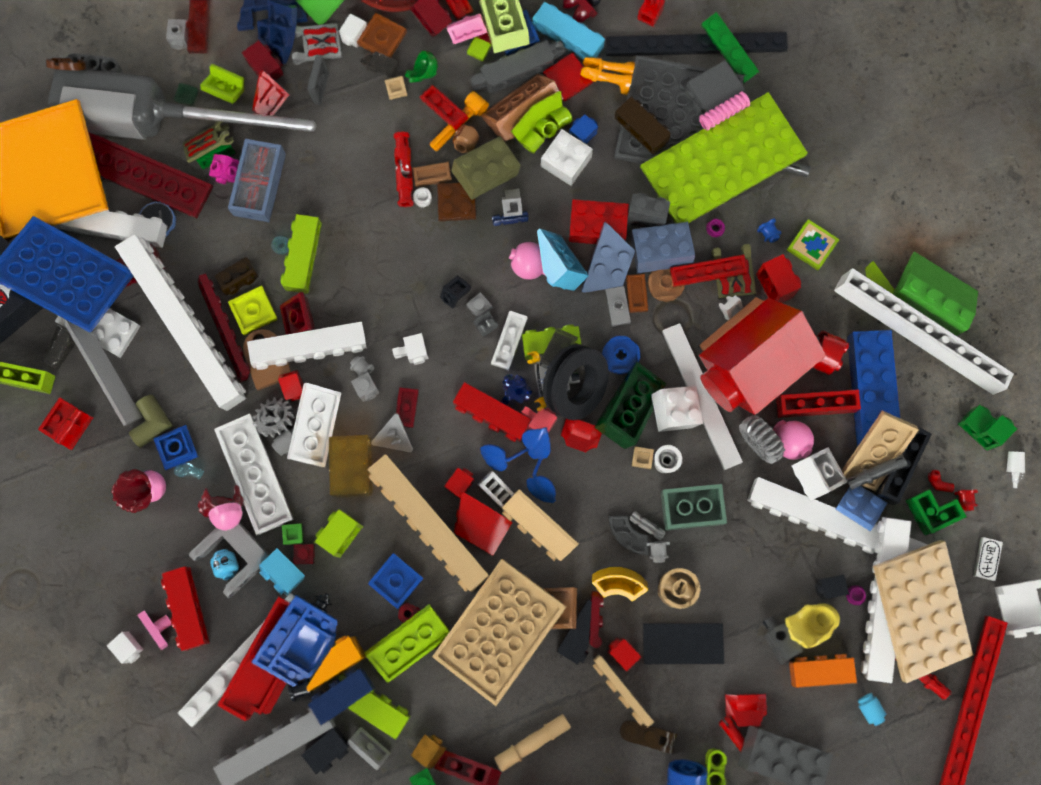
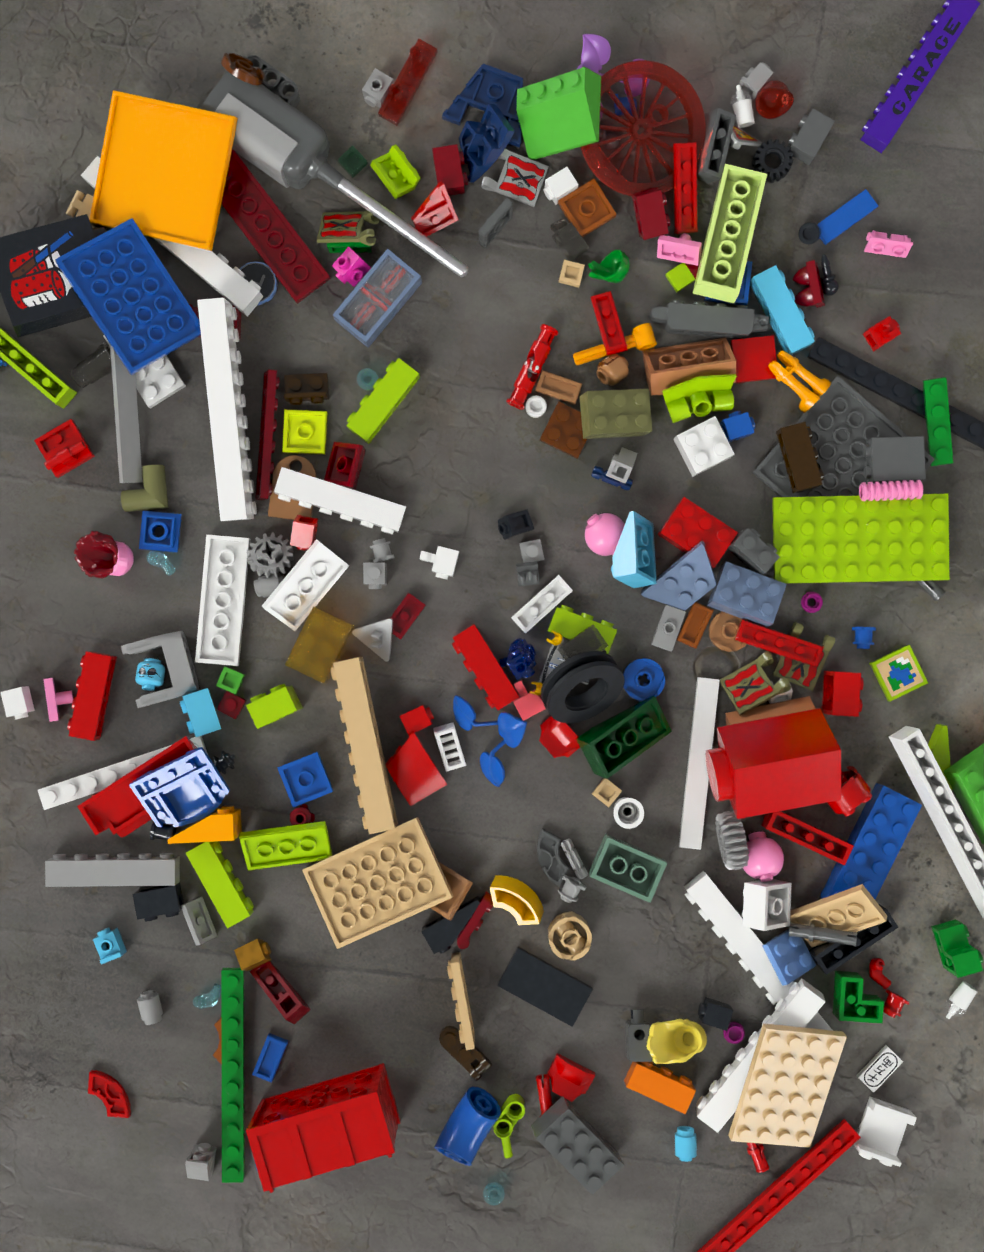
camera: 25 degrees right, 10 degrees up
(222, 511) = (174, 621): hair -> none
(341, 695) = (197, 862): dark blue brick -> none
(532, 742) = (353, 999): tan piece -> none
(539, 526) = (469, 804): tan slope -> none
(623, 653) = (482, 968): red brick -> none
(677, 408) = (666, 765): white brick -> none
(707, 313) = (751, 686): none -> flag

